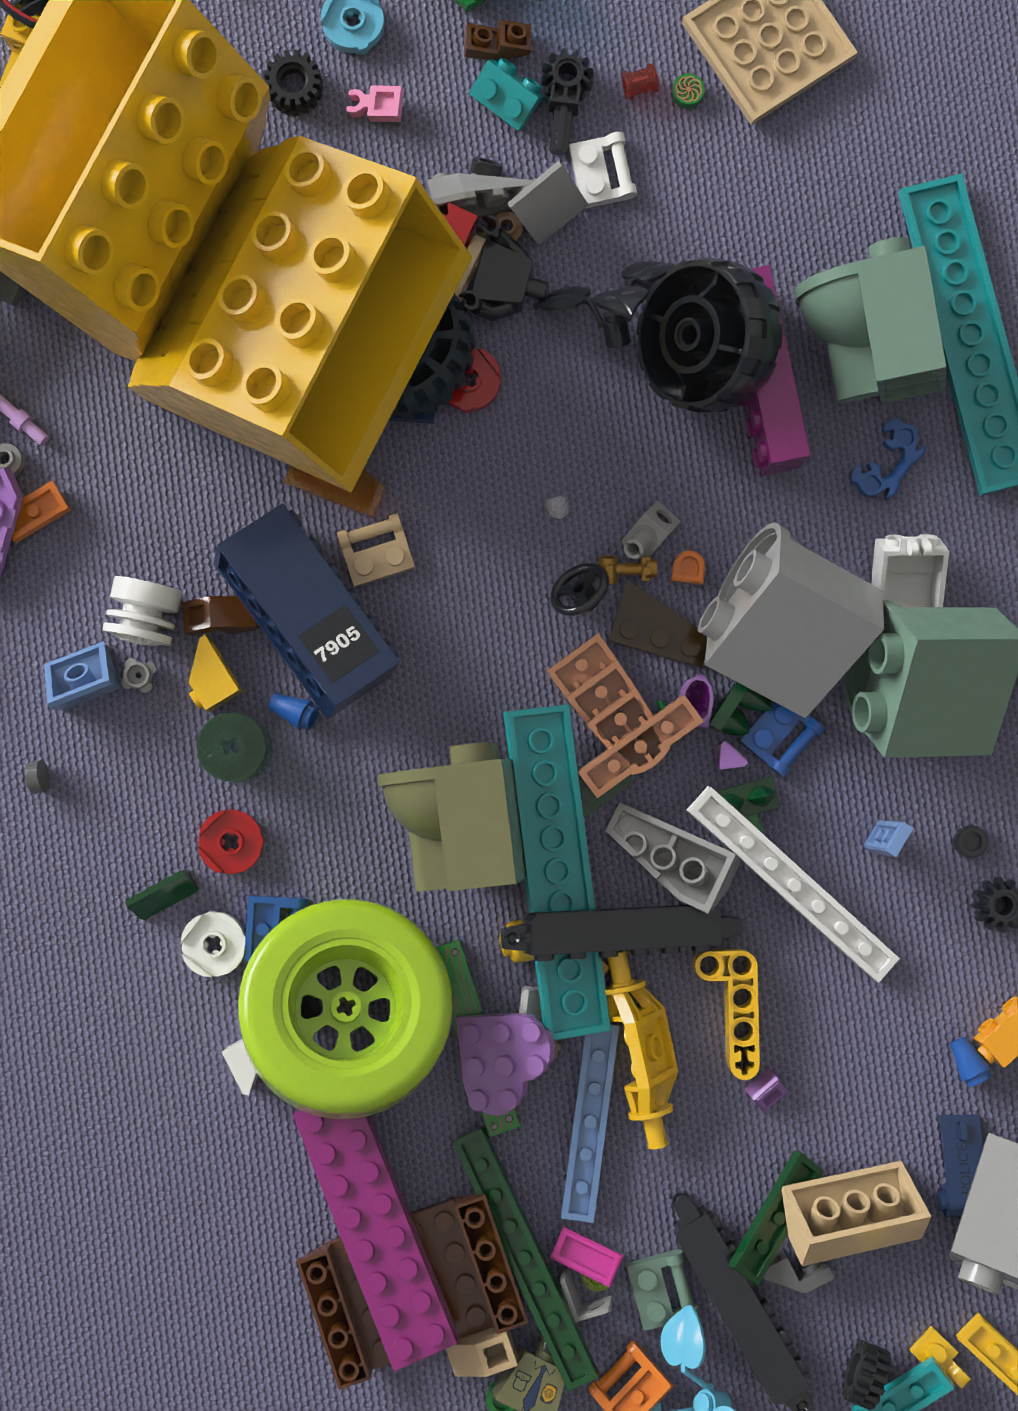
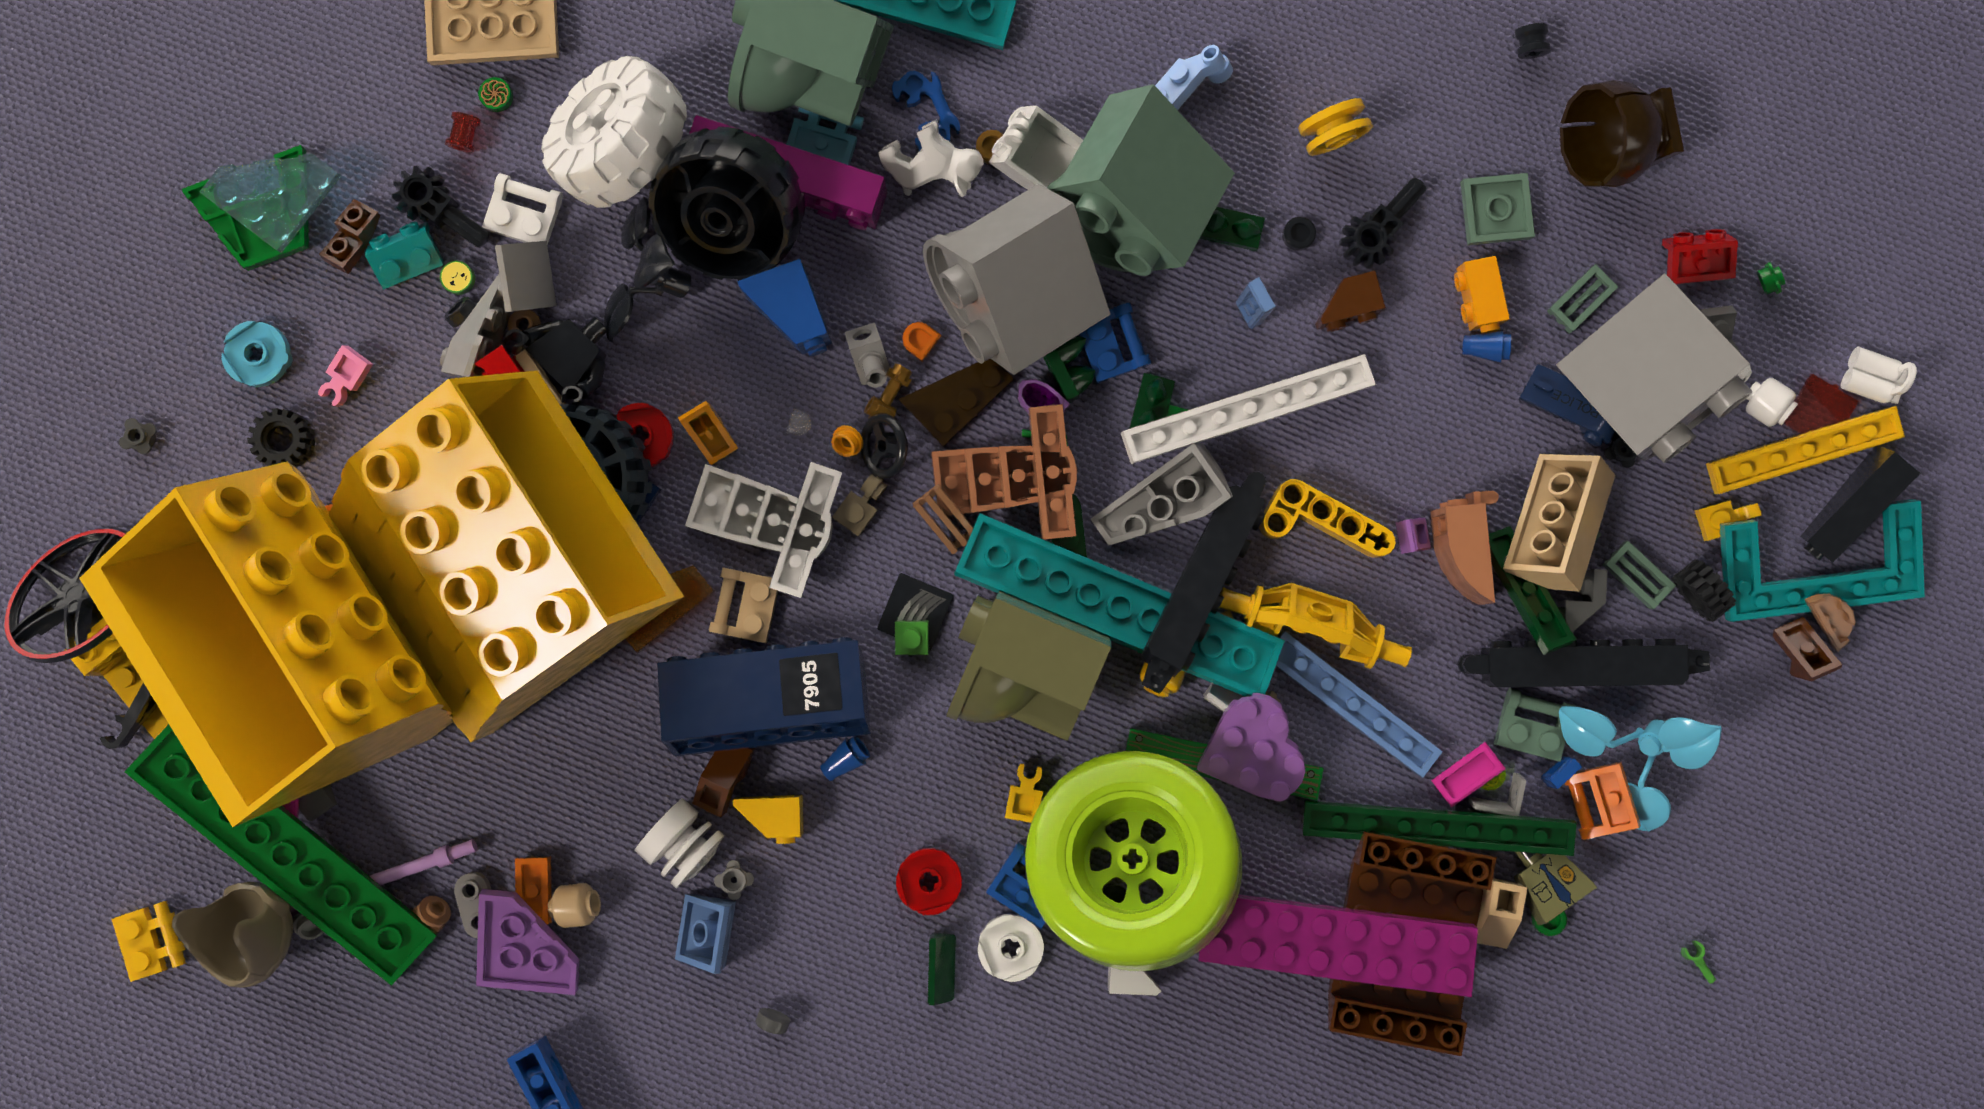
camera: 55 degrees left, 0 degrees up
(40, 553) = (574, 905): none -> tan head
(252, 739) = (851, 810): clear green wheel -> none
(347, 883) = (1024, 799): none -> yellow plate
(430, 708) = (911, 637): none -> bright green plate
(453, 698) = (915, 602): none -> black sticker
(461, 529) = (769, 518): none -> white slope
(505, 434) = (708, 432): none -> light orange slope
(509, 599) = (855, 511): none -> dark tan plate
(514, 149) = (457, 277): none -> light yellow tile
(537, 701) = (961, 540): none -> medium nougat tile
(565, 556) = (847, 441): none -> light orange plate
(634, 1337) = (1560, 772): none -> blue tile
(653, 441) = (789, 305): none -> blue slope
(714, 204) = (613, 131): none -> white wheel
(728, 757) = (1105, 400): medium lavender slope -> none
(783, 1140) = (1464, 545): none -> nougat piece
(811, 389) = (824, 141): none -> medium azure plate
(848, 491) = (934, 161): none -> white animal
(860, 1305) = (1617, 556): none -> sand green tile
(888, 527) = (986, 142): none -> pearl gold tile
(940, 920) = (1352, 299): none -> reddish brown slope
(941, 782) = (1234, 229): none -> dark green tile
(941, 1226) = (1614, 452): none -> black plate

